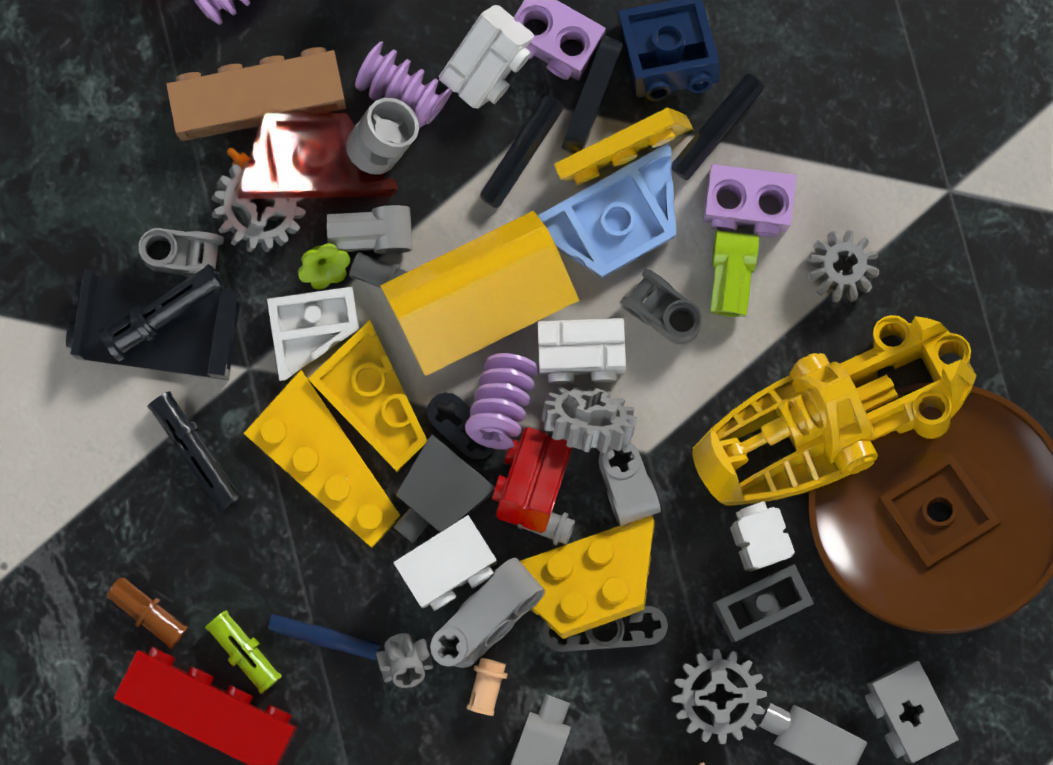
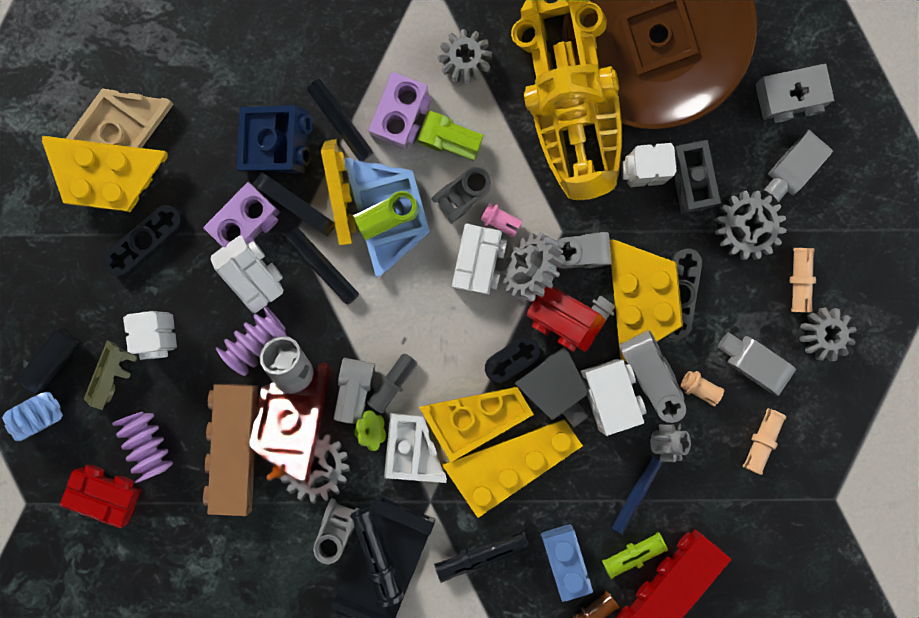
camera: 65 degrees left, 5 degrees up
(213, 562) = (566, 562): none -> medium blue brick
(480, 292) = (419, 322): yellow piece -> none
(501, 400) = (502, 329): lavender piece -> none
(606, 212) = (384, 216): none -> lime piece
(641, 366) = (498, 218): none -> bright pink pin

